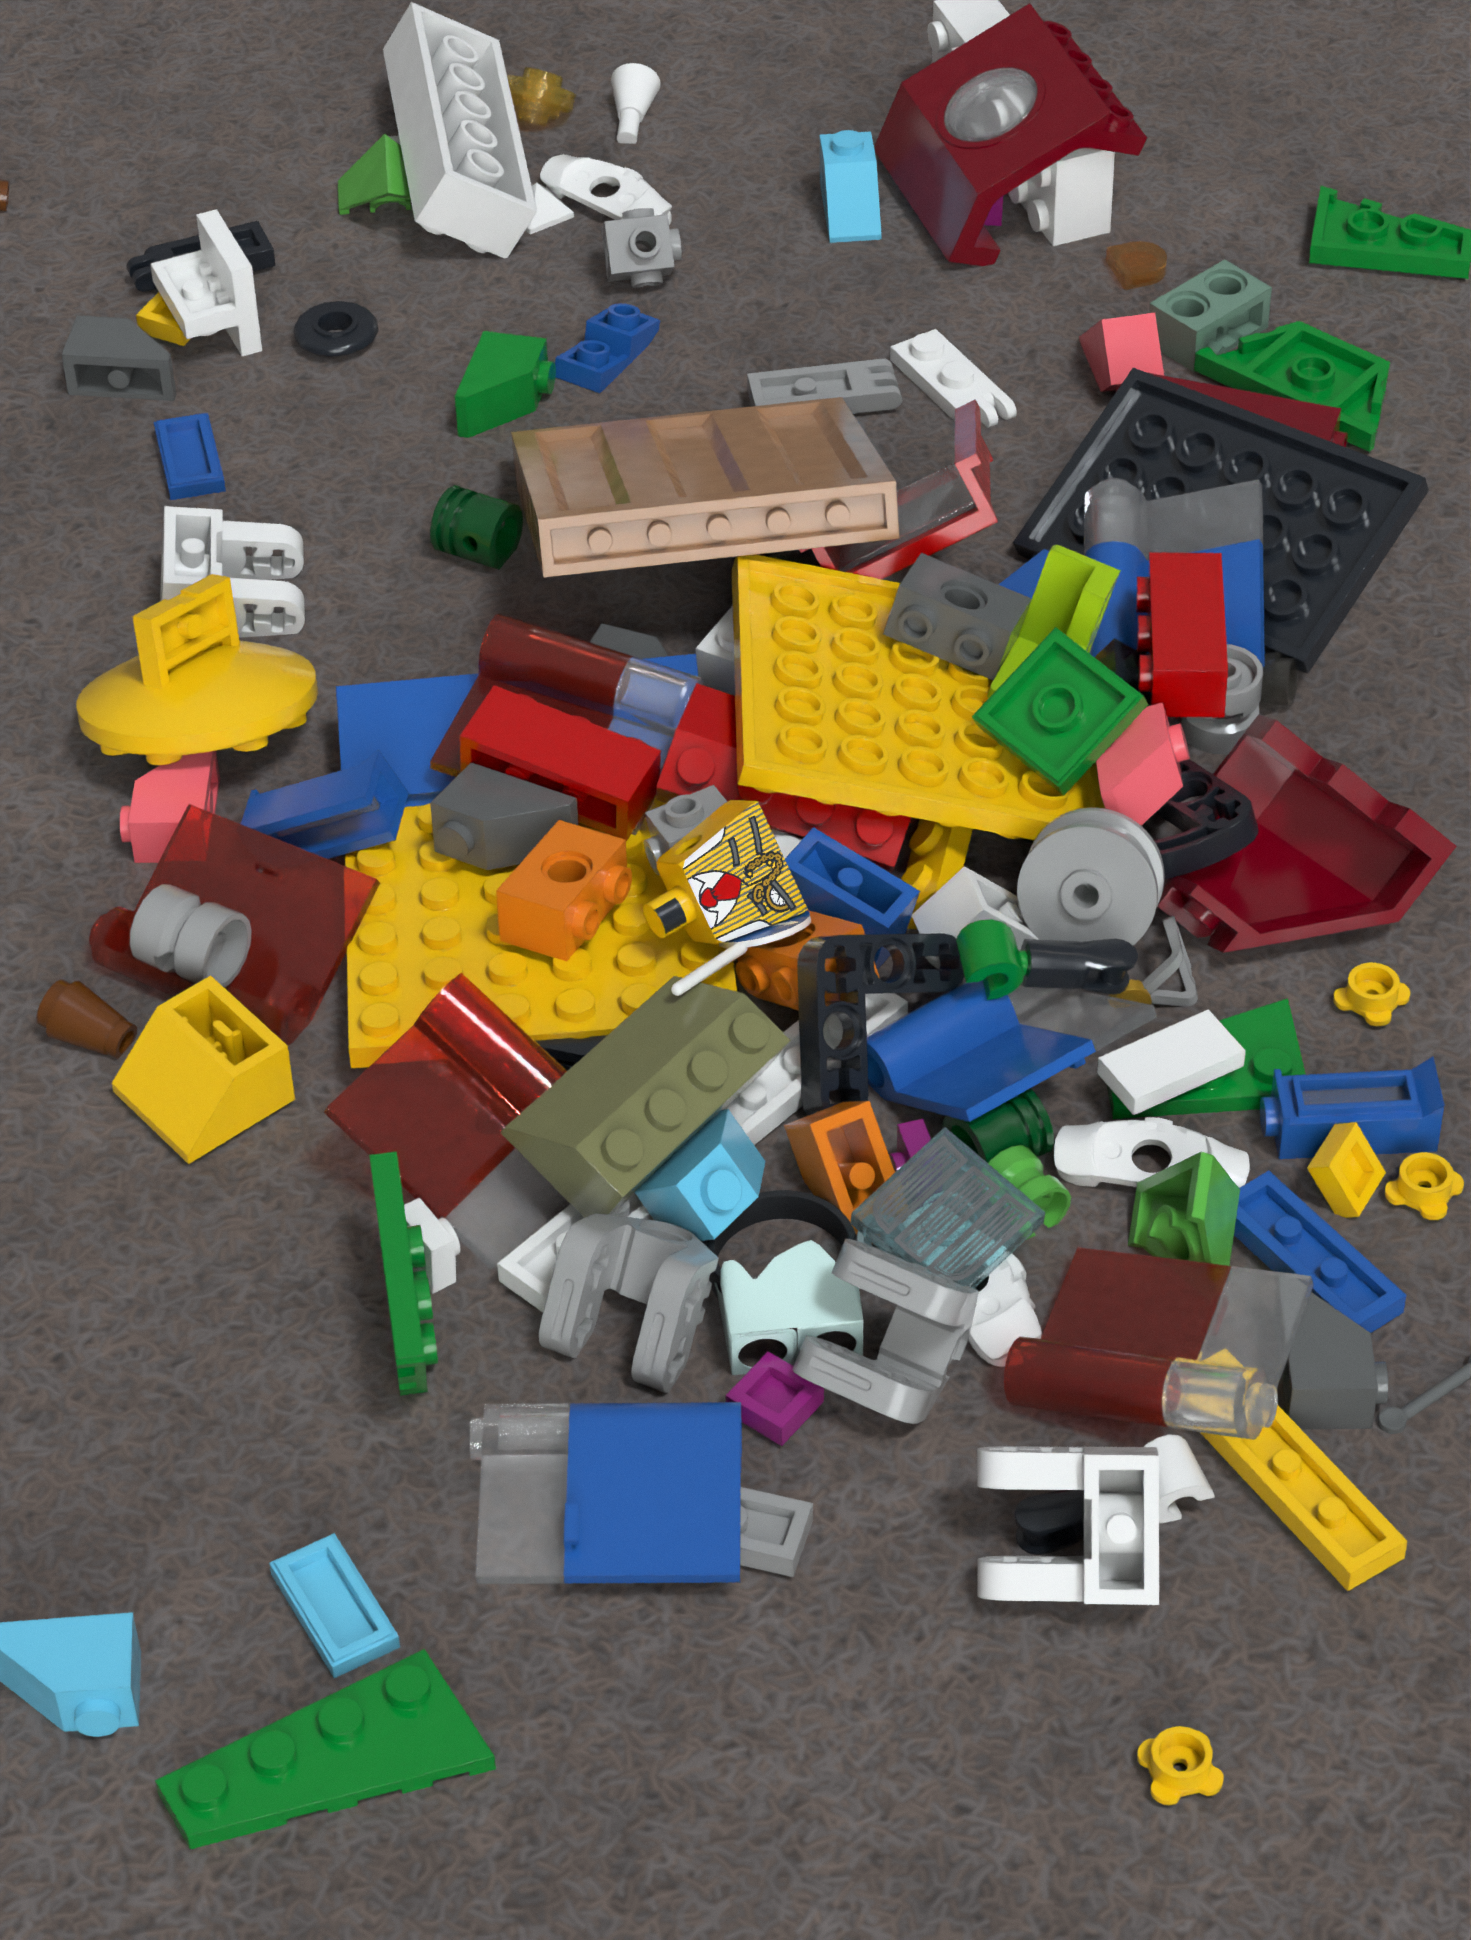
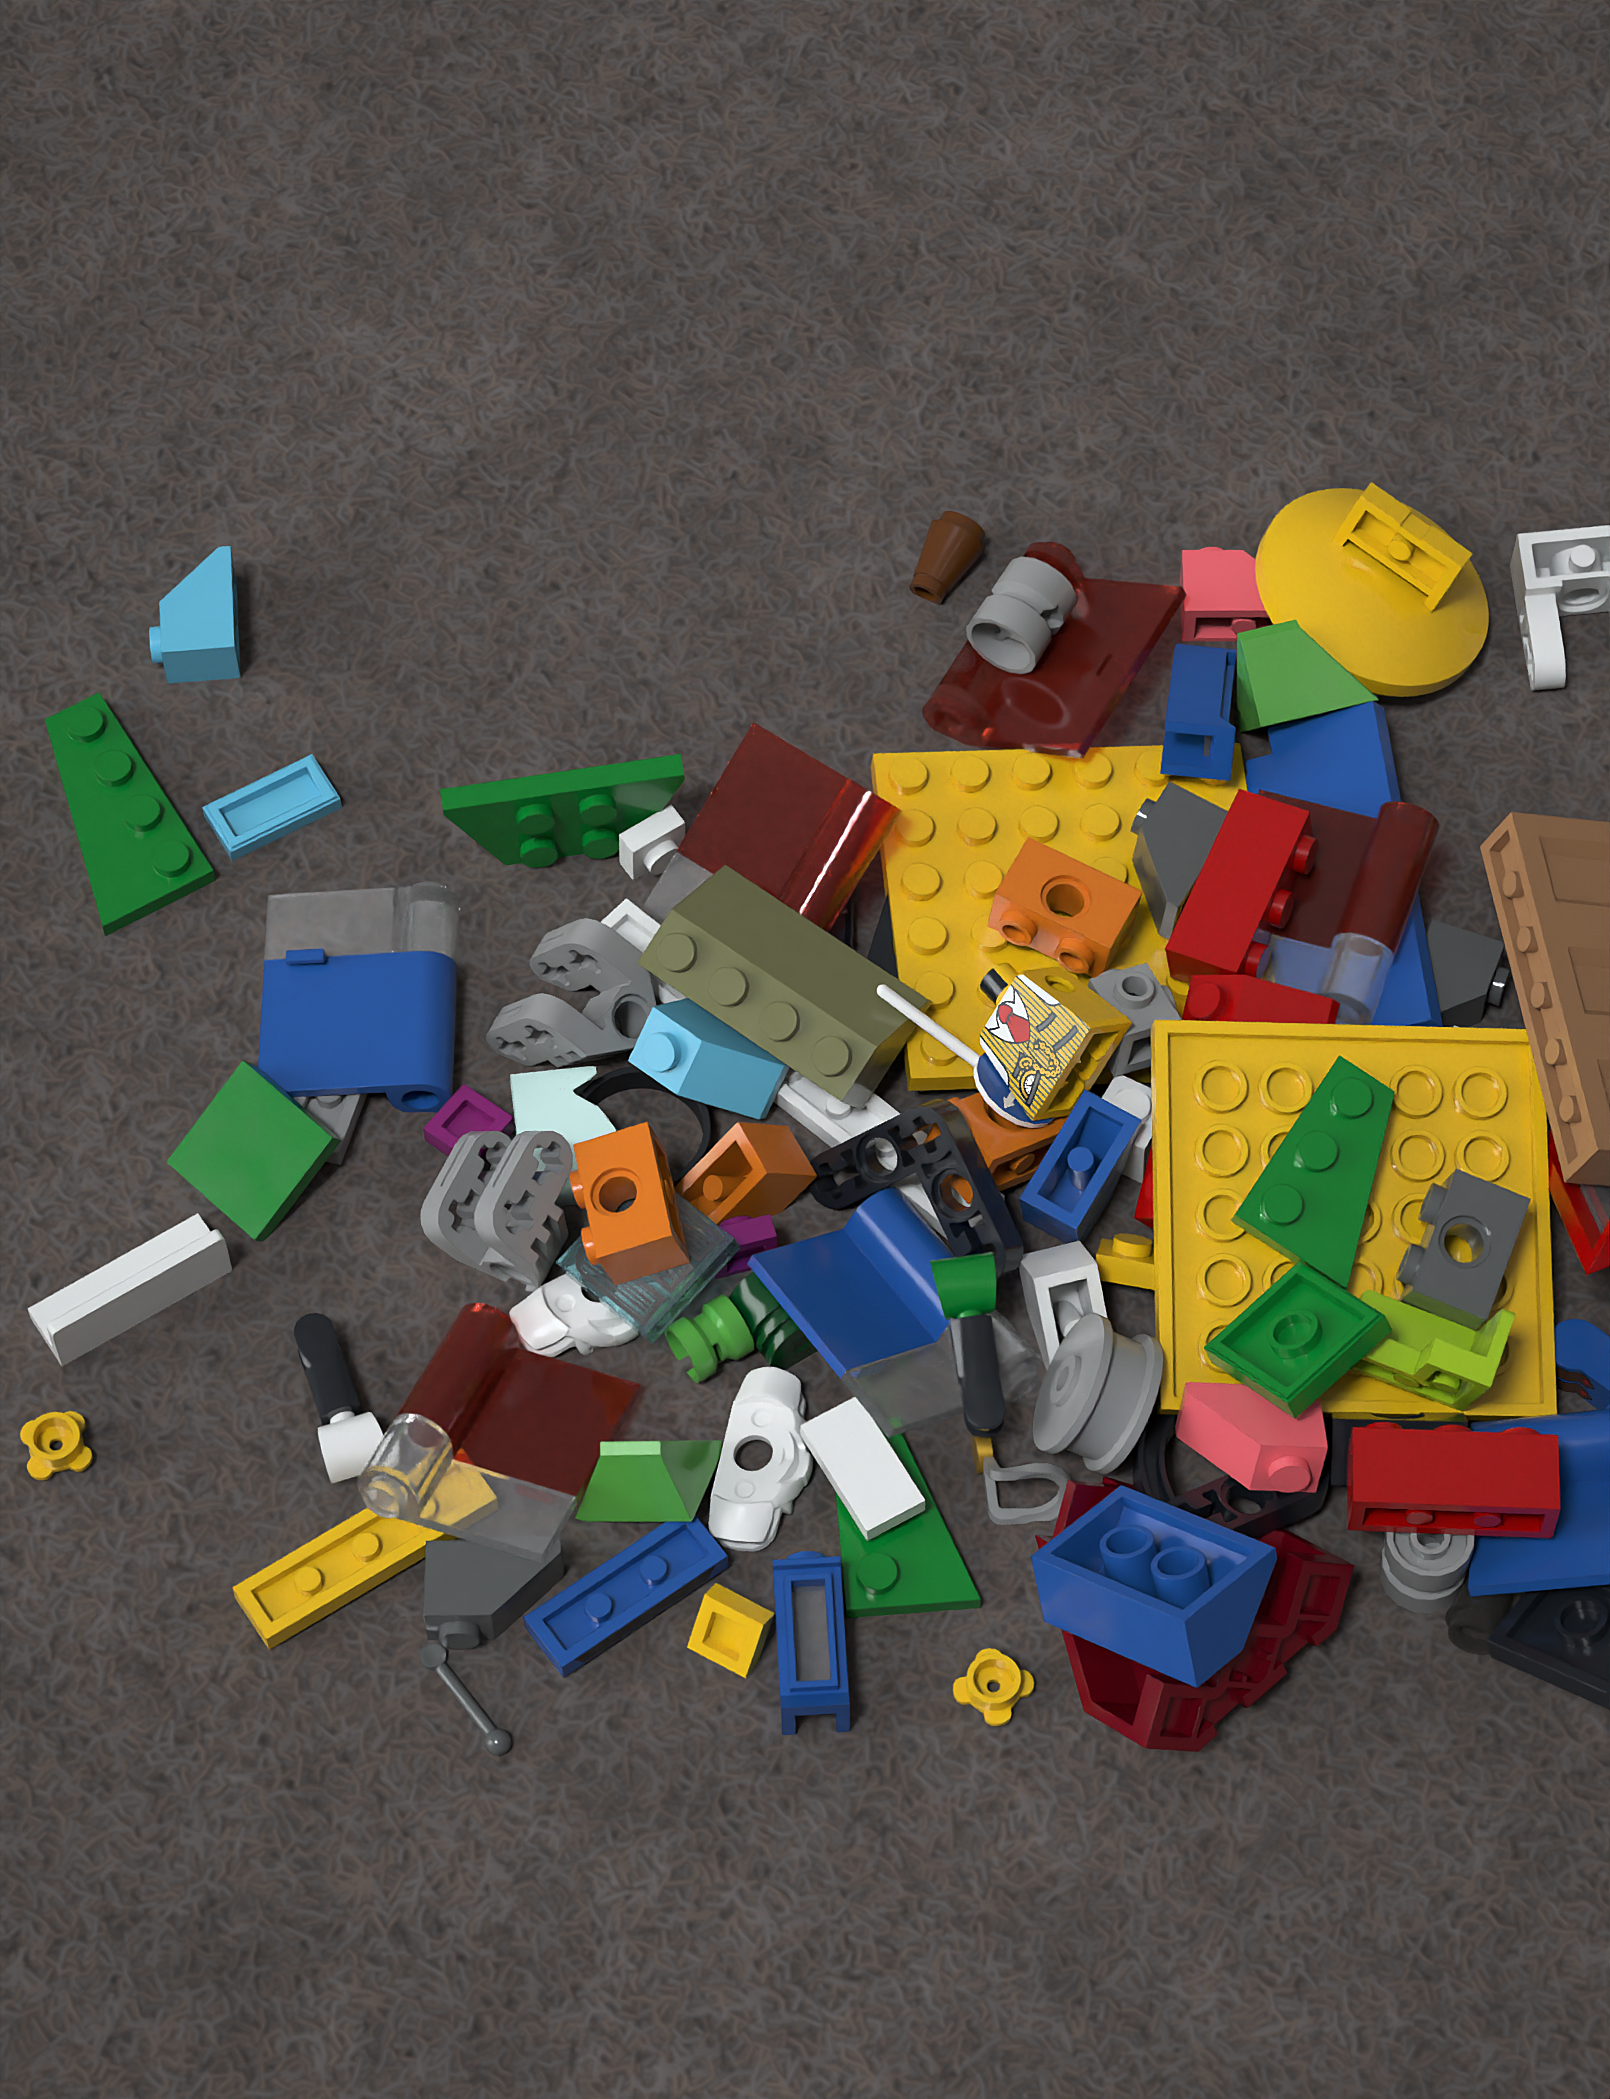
camera: 90 degrees right, 15 degrees up
(204, 1070) = (868, 654): yellow slope -> none
(308, 734) = (1289, 678): none -> bright green slope
(811, 1579) = (253, 1151): none -> green tile
(886, 690) = (1322, 1175): none -> green wing
(938, 1174) = (650, 1231): none -> orange brick
(984, 1698) = (131, 1289): none -> white panel
(1119, 1525) = (278, 1356): white brick -> none
(1308, 816) = (1154, 1584): none -> blue slope
(1430, 1171) = (721, 1691): yellow plate -> none

